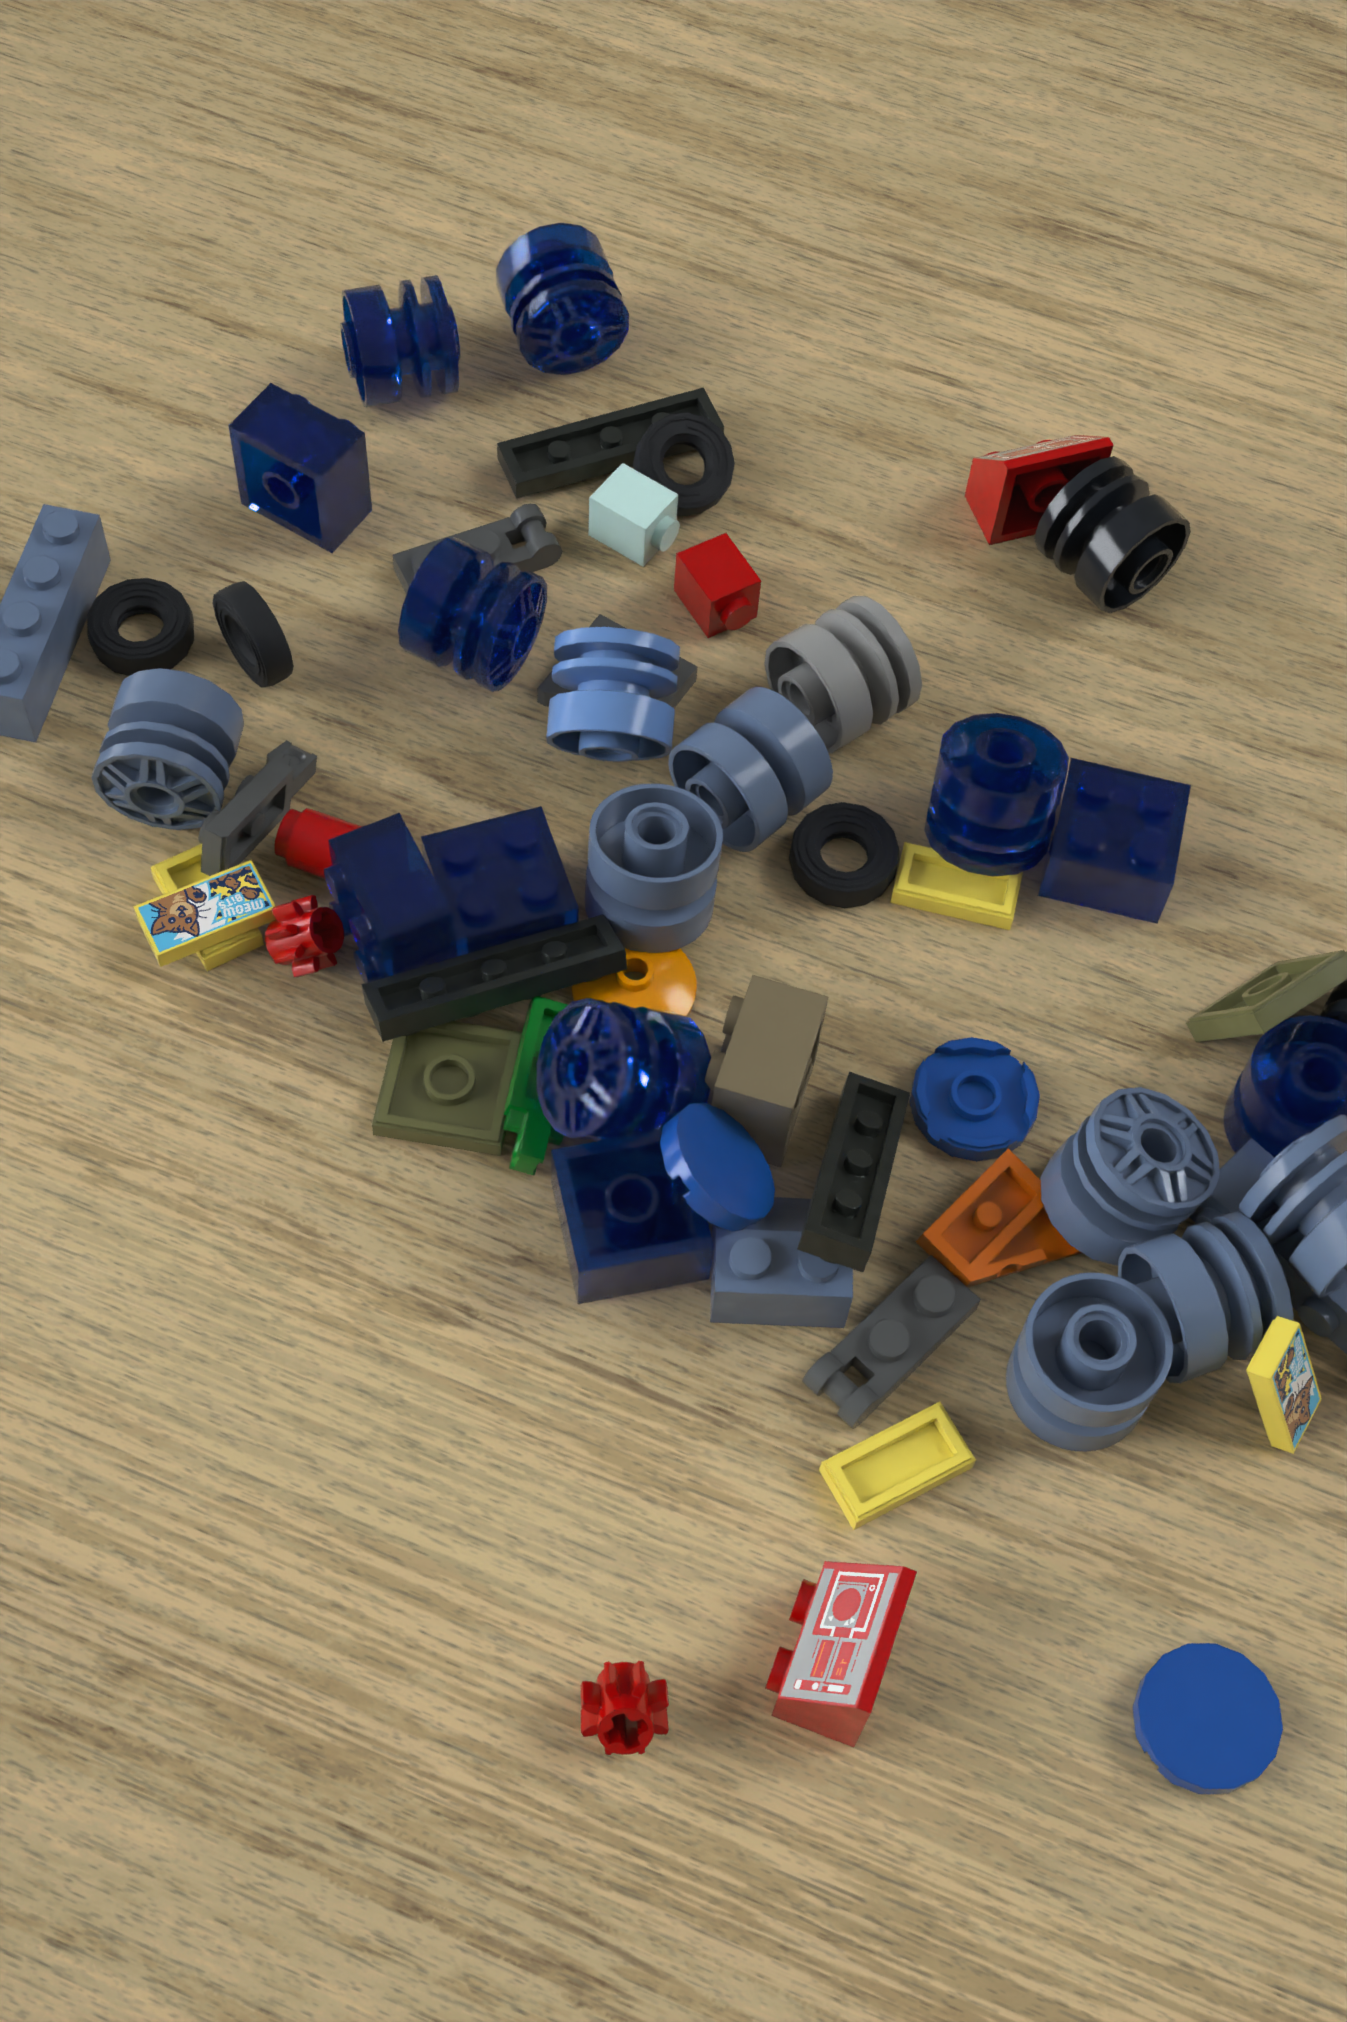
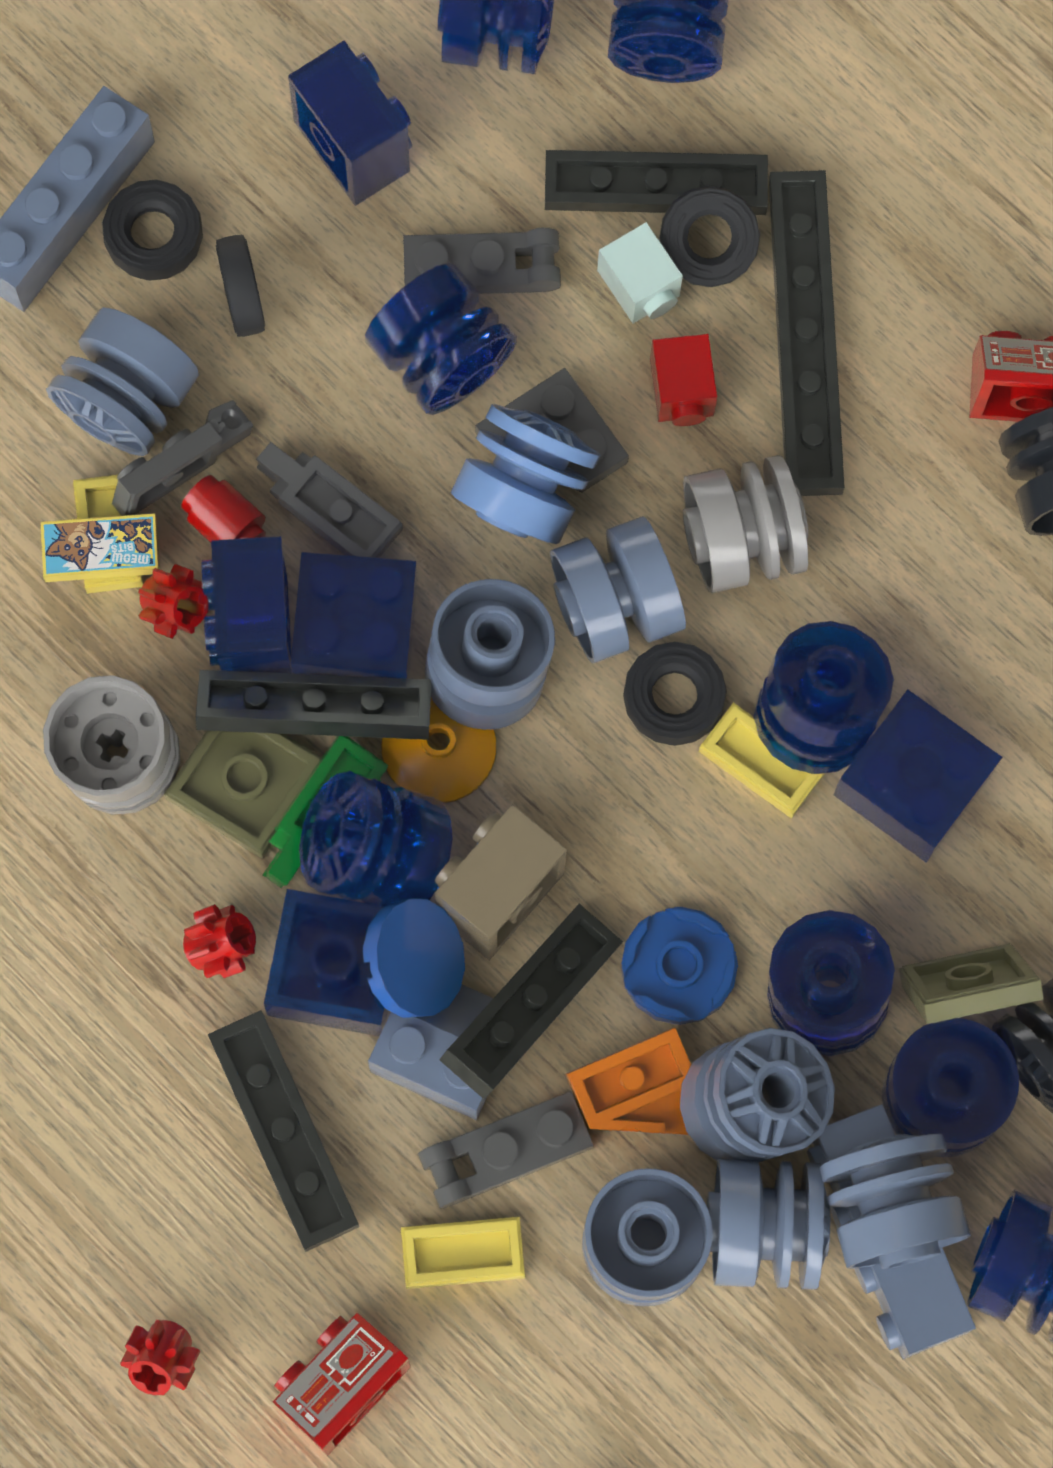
camera: 25 degrees right, 15 degrees up
(295, 1057) = (104, 714): none -> light grey wheel
(423, 797) = (329, 503): none -> dark grey hinge
(496, 1242) = (219, 941): none -> red gear
(651, 1412) = (283, 1131): none -> pearl dark grey plate
(803, 503) = (806, 331): none -> pearl dark grey plate
(1142, 1030) = (838, 950): none -> clear blue wheel
(1284, 1383) = (795, 1322): tile -> none

